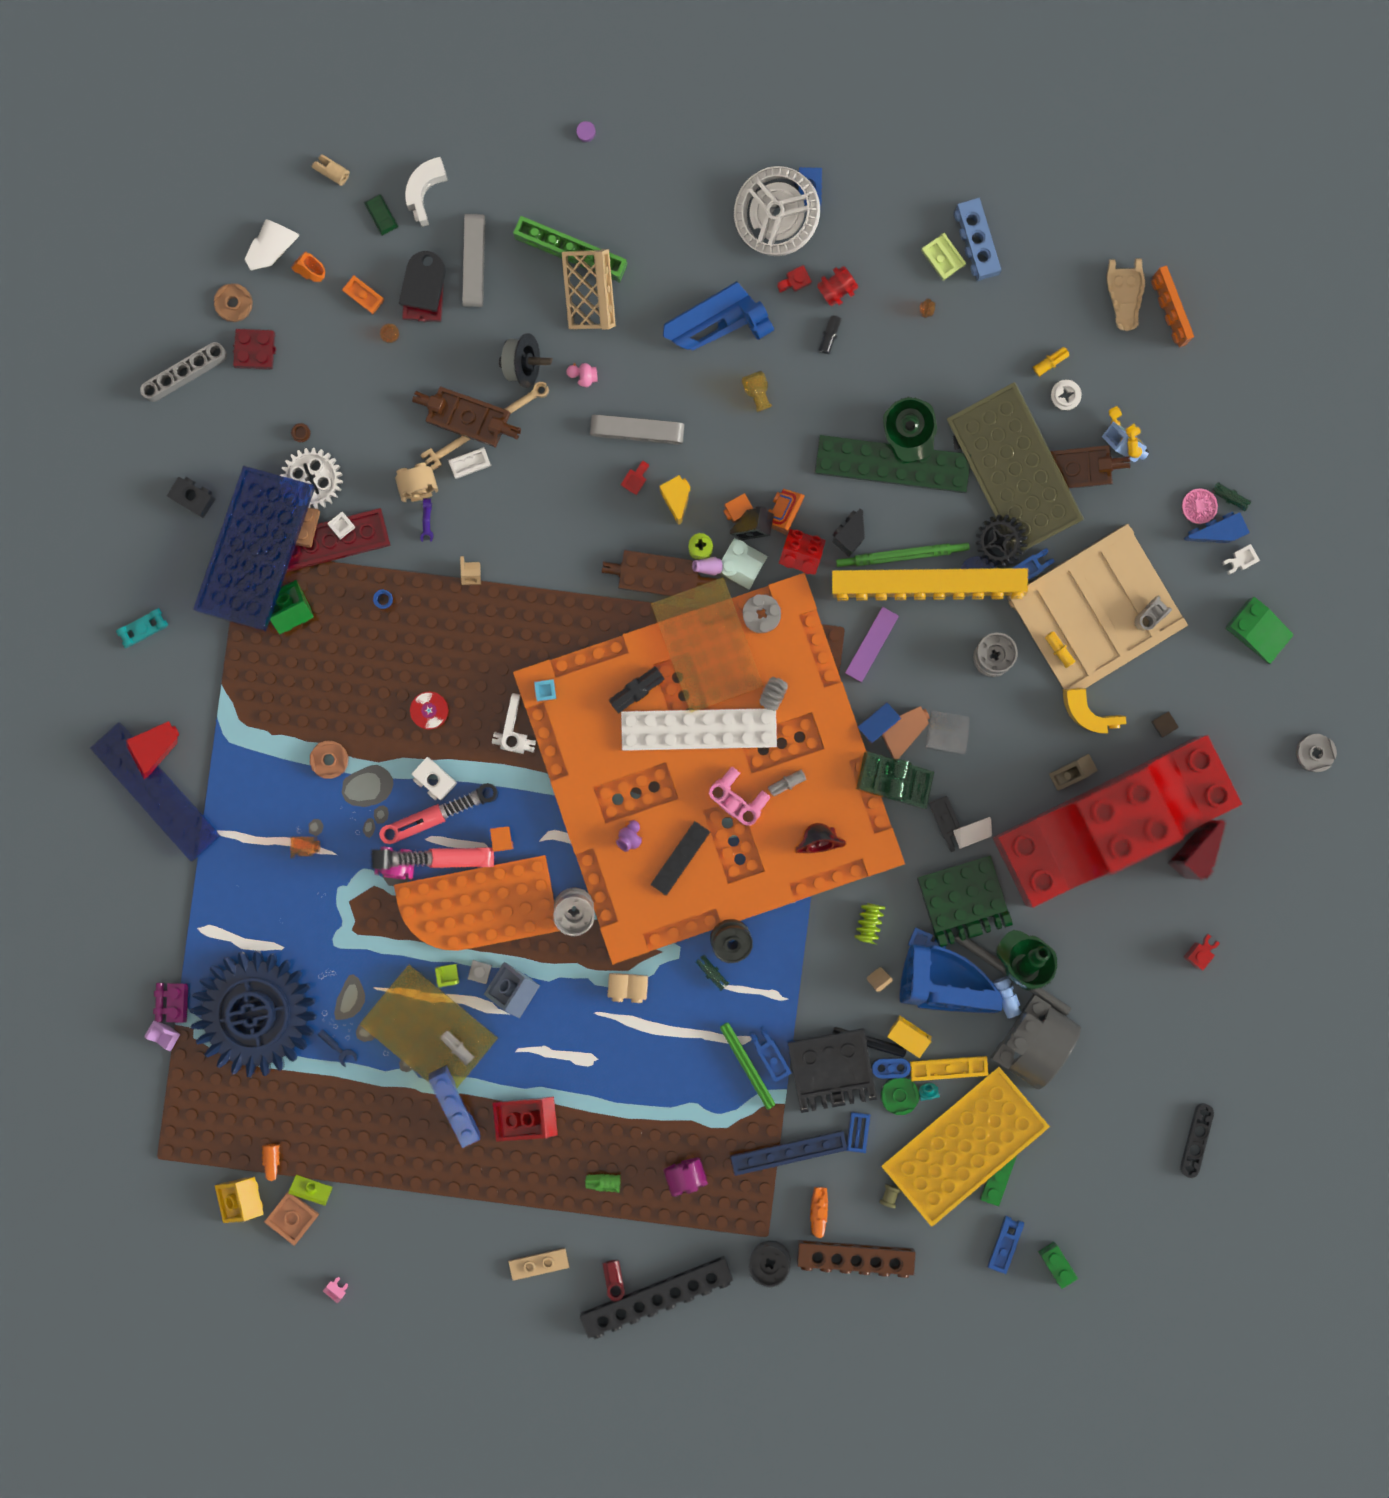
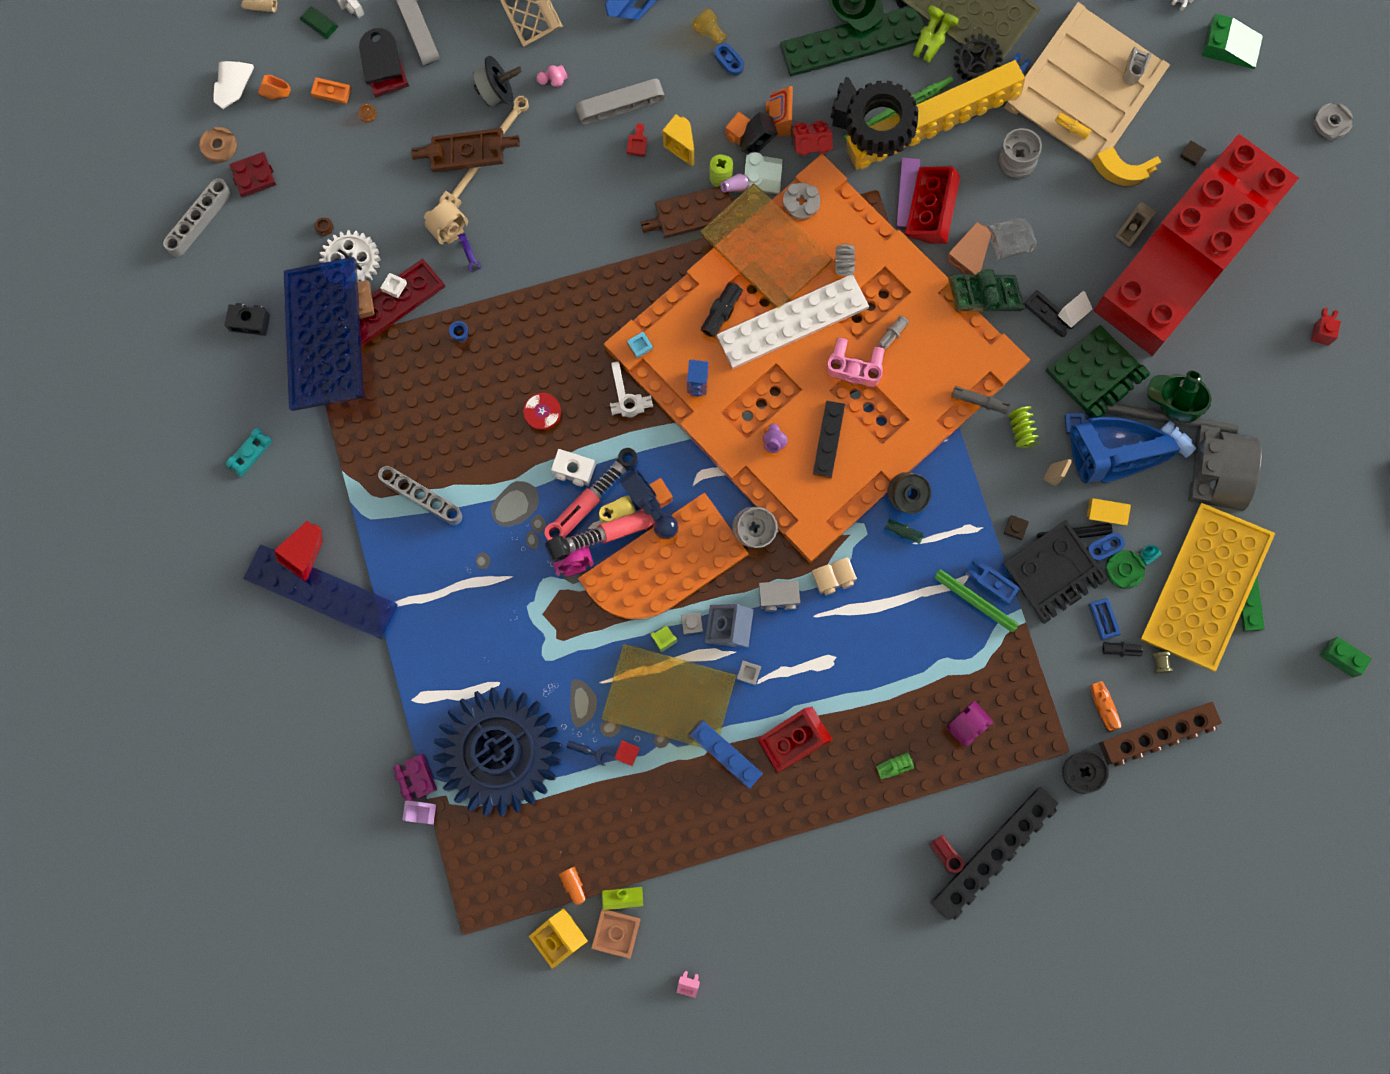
camera: 20 degrees left, 10 degrees down
(274, 738) = (415, 488): none -> light grey beam
(290, 608) = (378, 375): green slope -> none
(304, 846) = (480, 578): clear orange window -> none
(340, 759) = (472, 504): nougat tile -> none
(369, 1064) = (627, 753): none -> red tile
(456, 1047) = (702, 698): light grey axle -> none
(460, 838) = (617, 509): none -> light yellow piece
(469, 463) = (485, 189): white plate -> none
(470, 572) = (527, 280): tan panel -> none
(485, 839) = (645, 498): none -> dark blue beam
(510, 1041) = (749, 673): none -> light grey plate
(539, 1264) = (869, 873): tan plate -> none
(569, 982) = (779, 595): none -> light grey brick
(582, 749) = (697, 378): none -> blue brick
(763, 431) = (730, 60): none -> blue plate
(788, 1153) = (1051, 663): dark blue plate -> none
(818, 1012) = (1016, 527): none -> dark brown plate
(819, 838) = (946, 367): hat -> none
(838, 883) = (987, 402): none -> dark grey pin
(860, 1167) = (1122, 649): none -> black axle
(870, 546) = (886, 96): none -> black tyre
(879, 722) = (948, 249): blue slope -> none
(888, 667) = (933, 204): none -> red slope
(949, 1068) = (1157, 524): yellow plate -> none
(965, 497) = (928, 37): none -> lime piece
(1005, 1245) = (1289, 661): blue plate -> none
(1200, 851) = (1283, 234): dark red slope -> none

